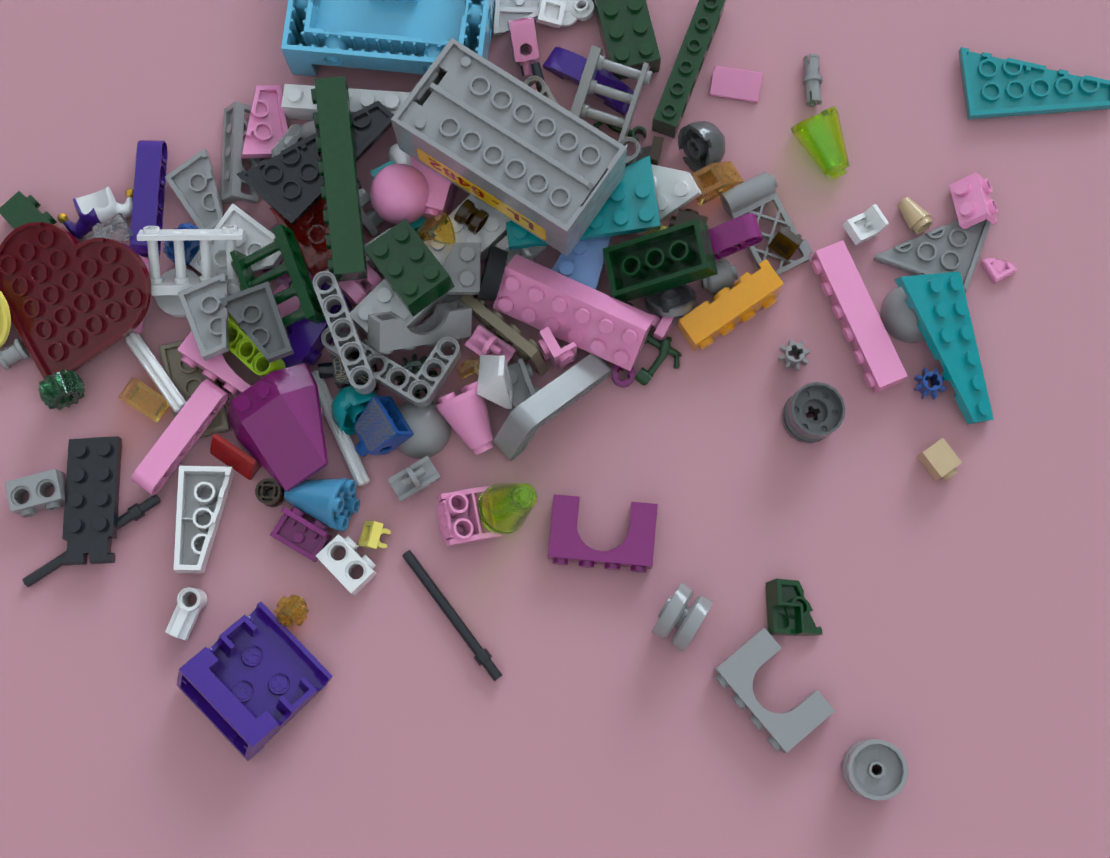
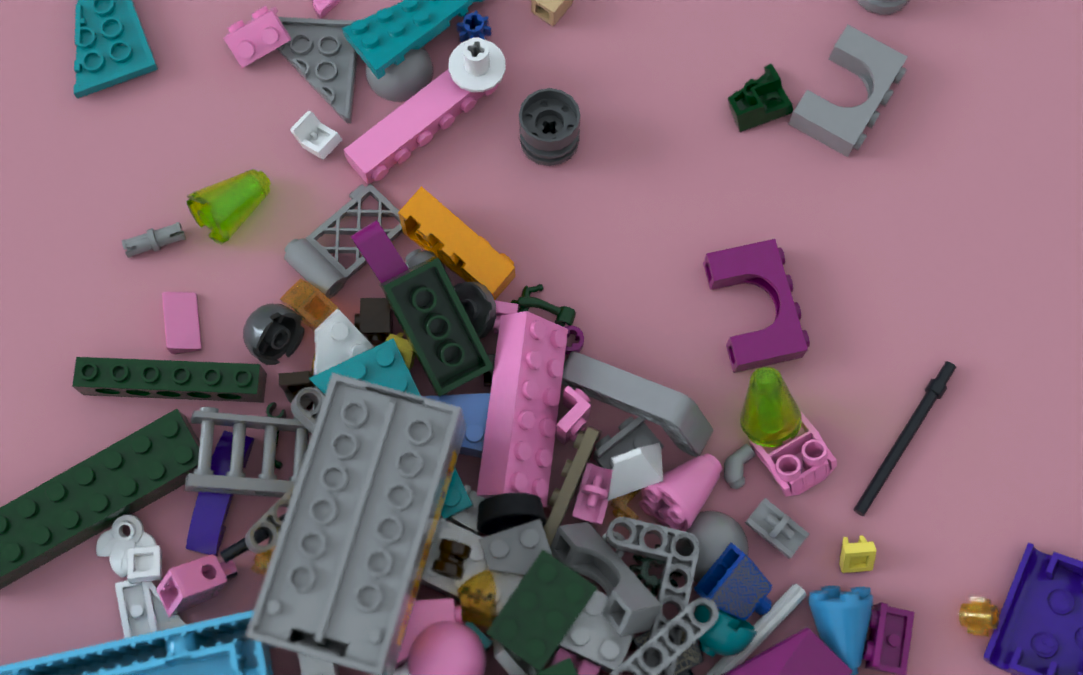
camera: 115 degrees left, 5 degrees down
(342, 568) = (908, 576): white brick -> none
(477, 467) = (734, 466): none -> light grey arm
(681, 616) = (816, 192): light grey wheel -> none
(785, 242) = (364, 207): dark brown tile -> none
(790, 361) = (484, 174): light grey gear -> none
(886, 367) = (477, 65): none -> white piece
(915, 216) = (289, 91): tan cone -> none

